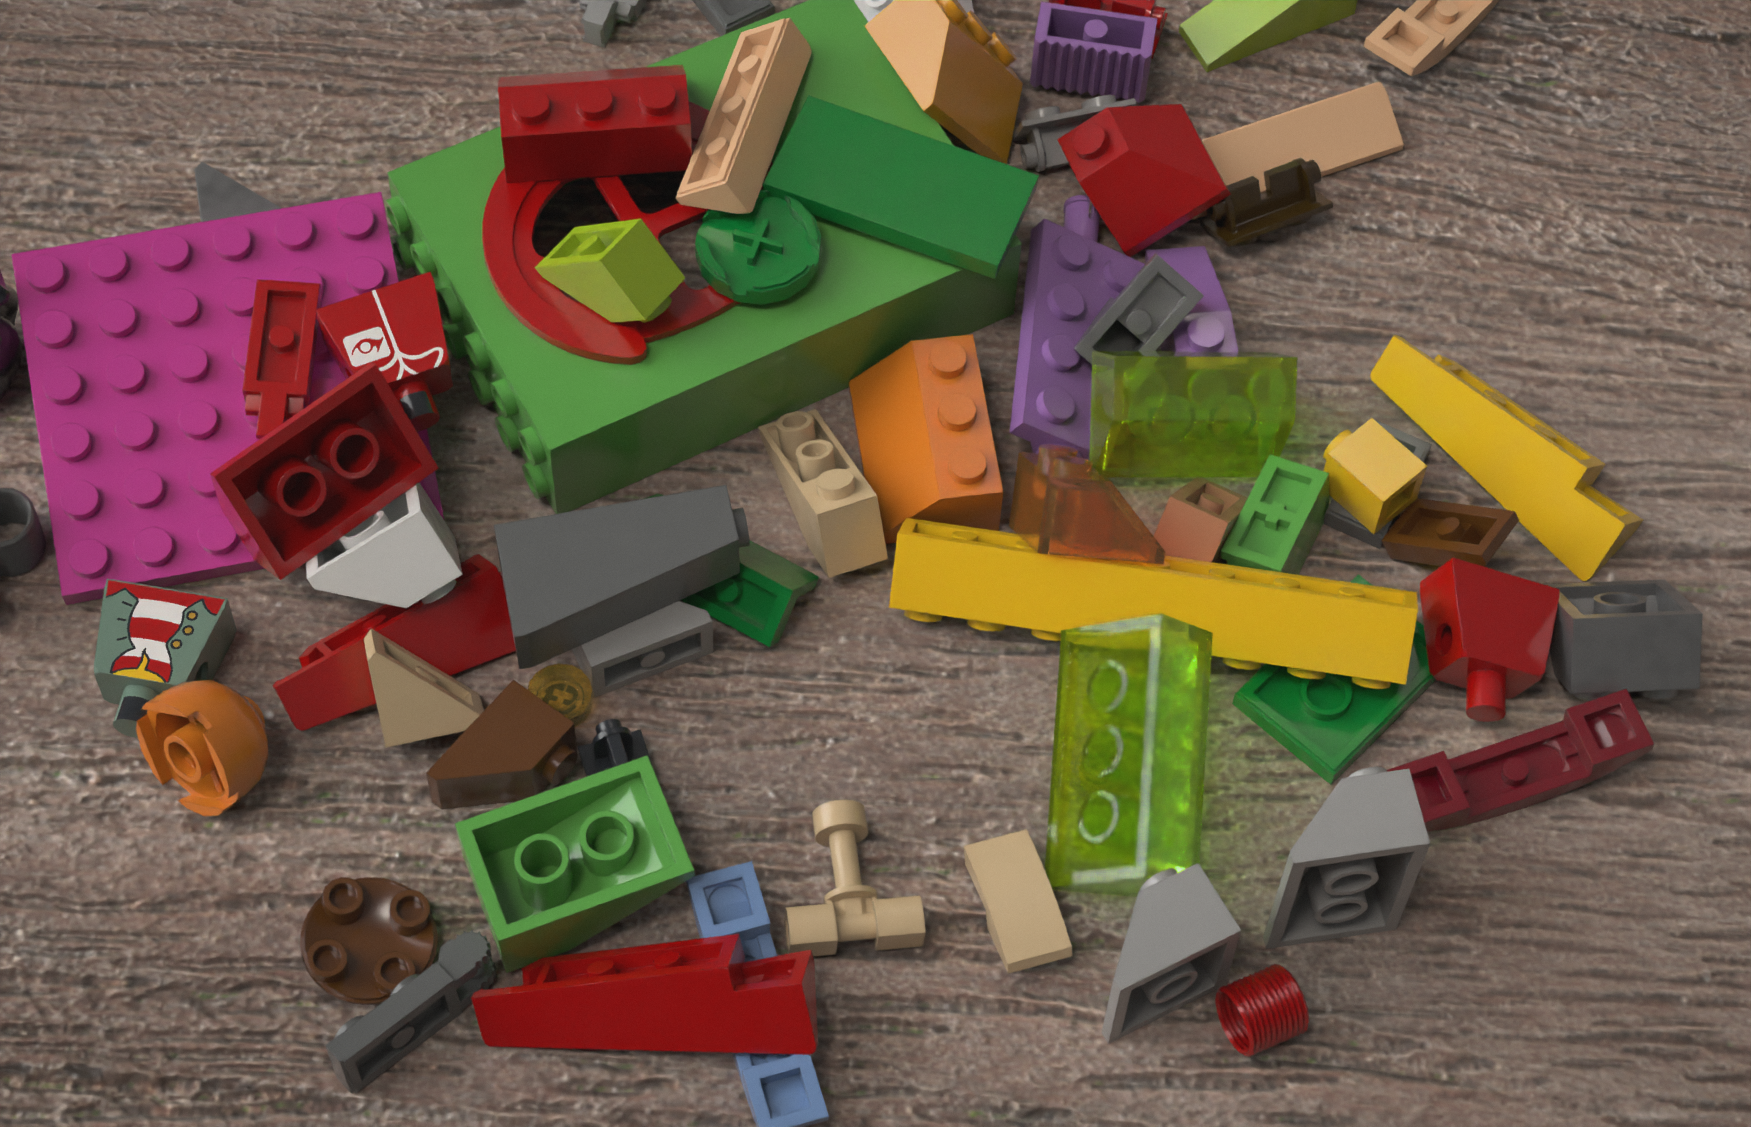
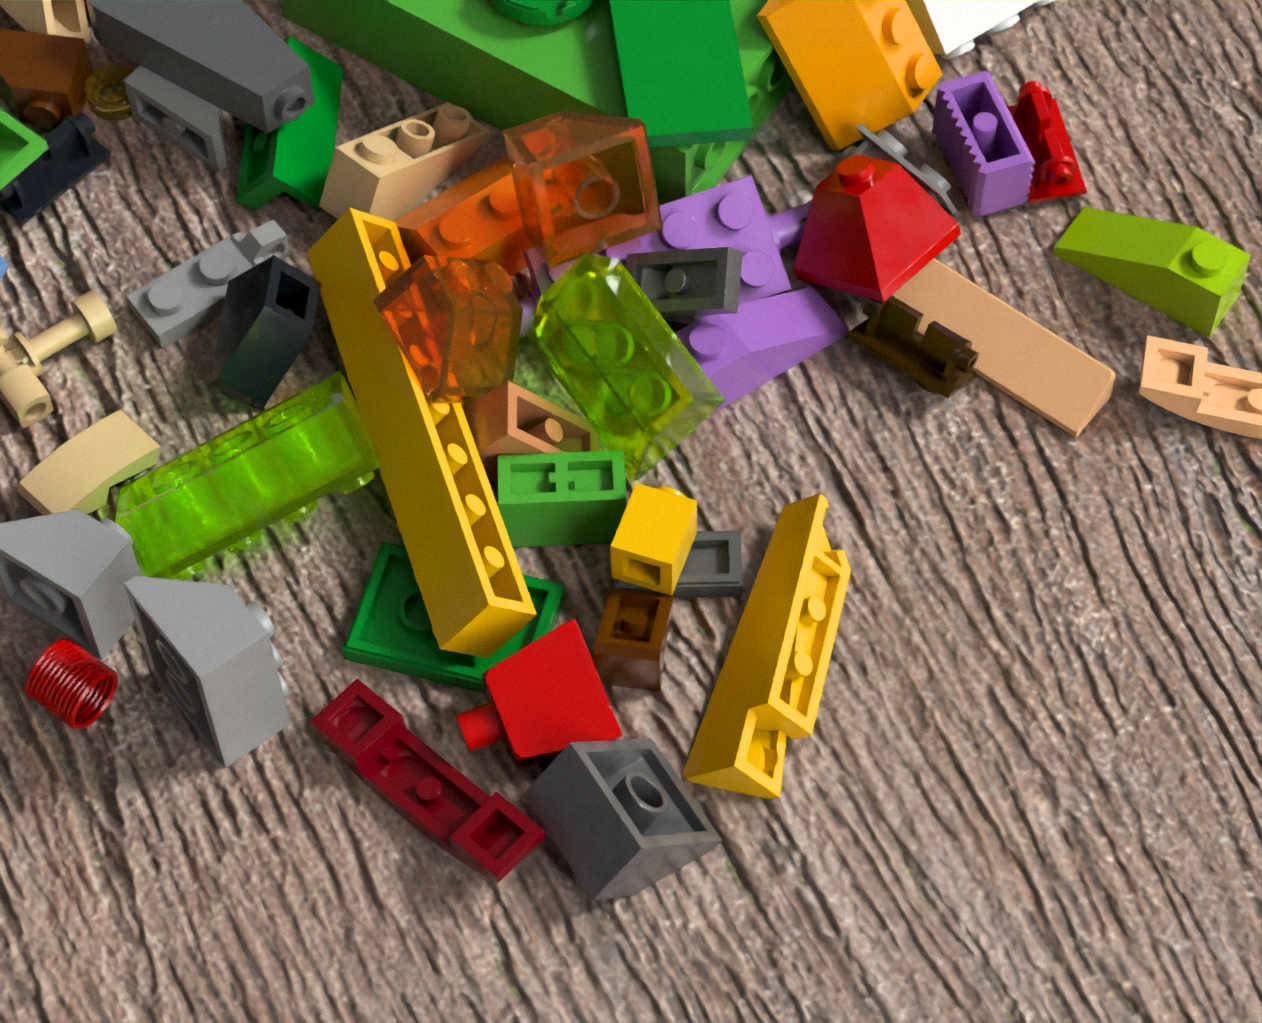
camera: 65 degrees right, 0 degrees up
(853, 714) = (198, 287): none -> light grey hinge
(956, 677) = (263, 329): none -> black slope
(1016, 332) = (582, 183): none -> clear orange slope

